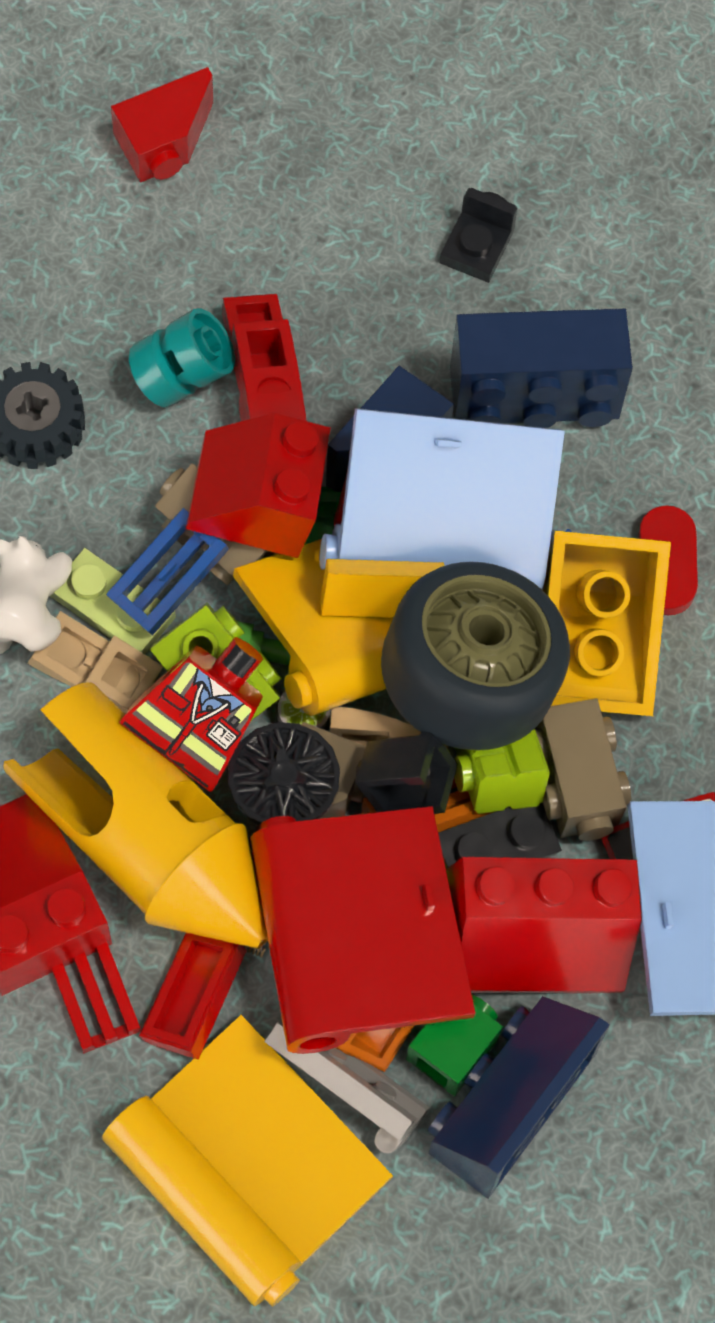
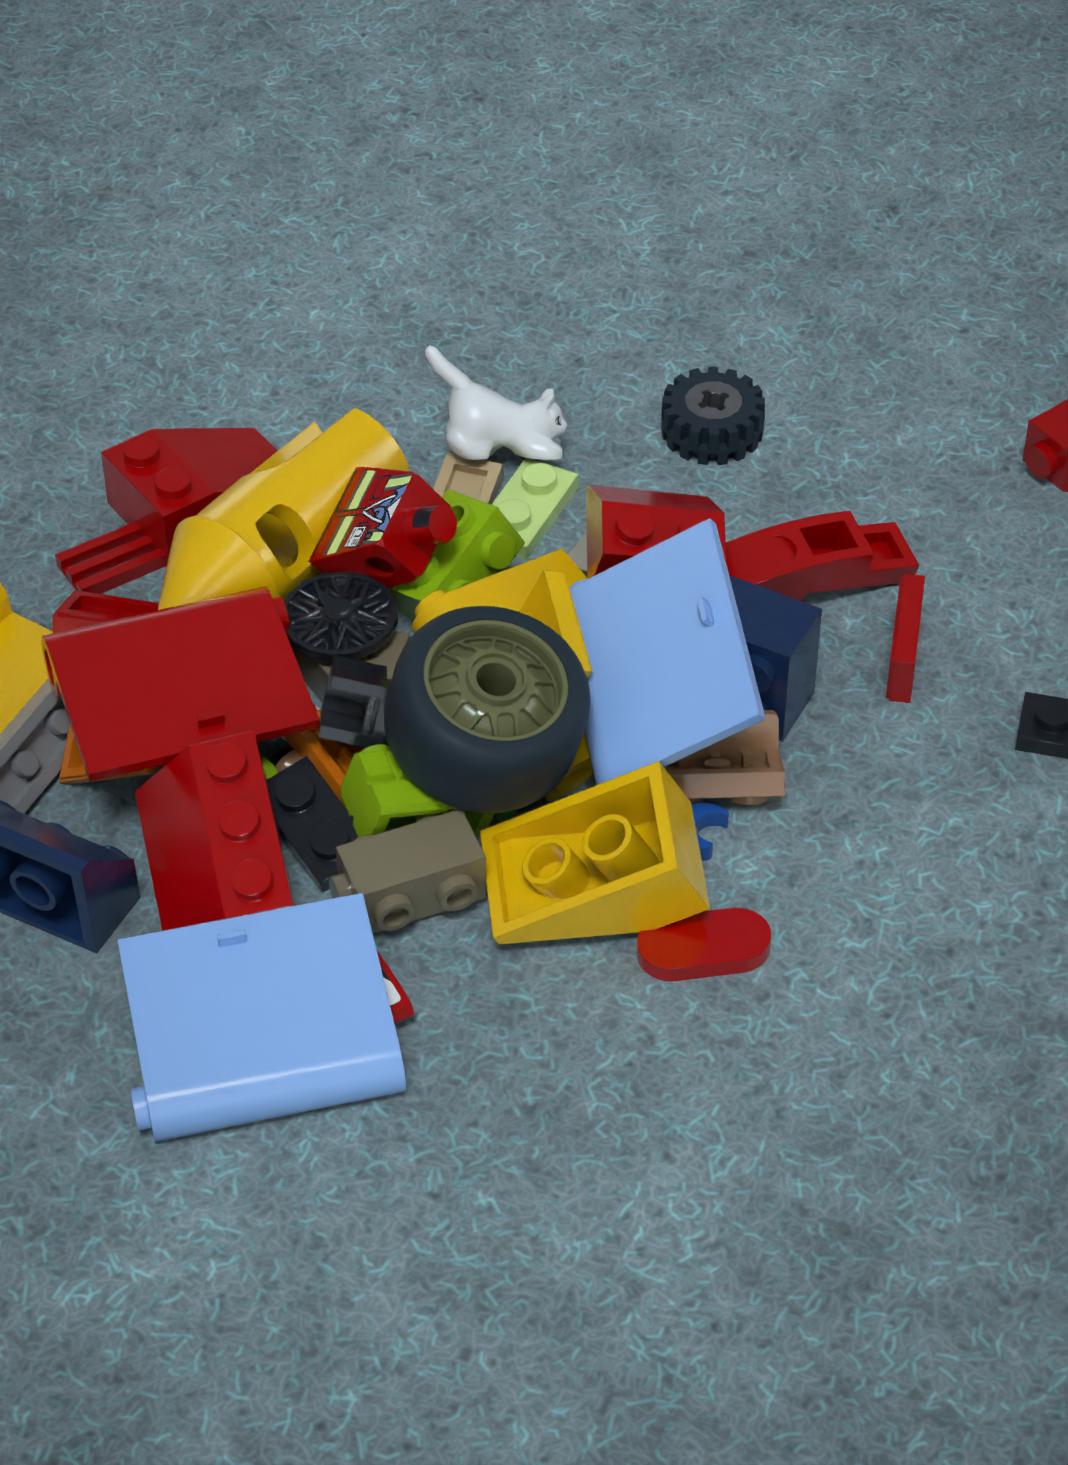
camera: 85 degrees right, 20 degrees down
(182, 358) = (791, 479): teal wheel -> none
(184, 586) = (547, 518): blue tile -> none
(366, 325) = (905, 638): none -> red tile
(453, 1048) = (93, 810): green brick -> none
(541, 366) = (890, 767): dark blue brick -> none

